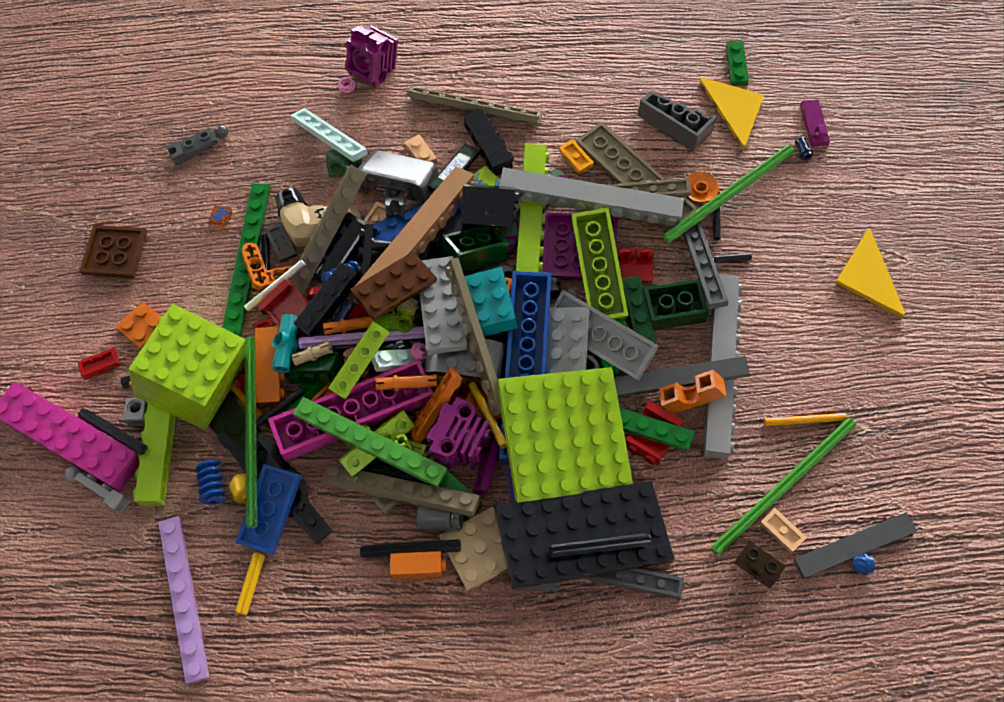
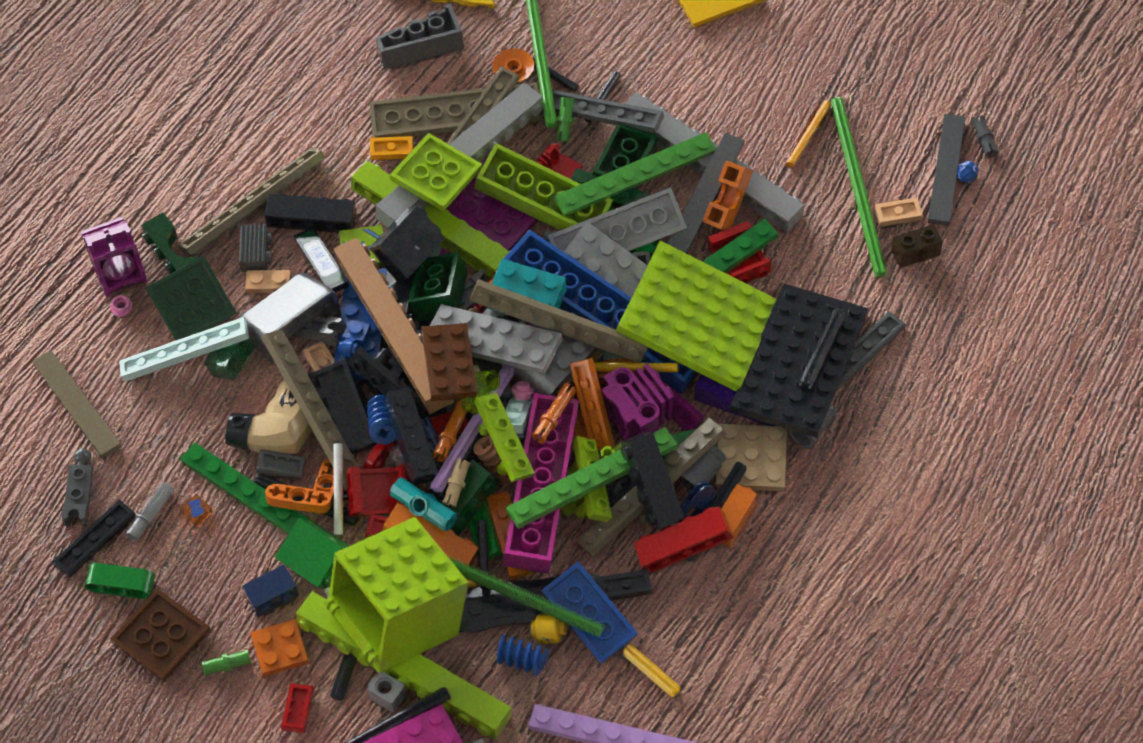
camera: 60 degrees left, 5 degrees down
(112, 301) = (226, 662): none -> bright green pin
(141, 205) = (120, 580): none -> green beam
(168, 174) = (94, 538): none -> black tile
(179, 293) = (270, 591): none -> dark blue brick
(199, 191) = (144, 519): none -> light grey axle
(218, 299) = (310, 552): none -> green brick
(259, 106) = (76, 404): none -> dark tan tile
(366, 540) = (683, 539): none -> red brick
(369, 115) = (191, 299): none -> dark green plate
(391, 485) = (652, 480): none -> black brick
(398, 222) = (354, 337): none -> blue plate
(411, 73) = (161, 235): none -> dark green arch
(411, 531) = (699, 498): none -> dark blue piece
(438, 127) = (254, 247): none -> dark grey brick
(556, 186) = (435, 172): none -> lime plate
(662, 317) = (634, 174): none -> bright green plate
(679, 244) = (565, 119): none -> bright green pin
(911, 558) = (985, 137): none -> dark grey pin

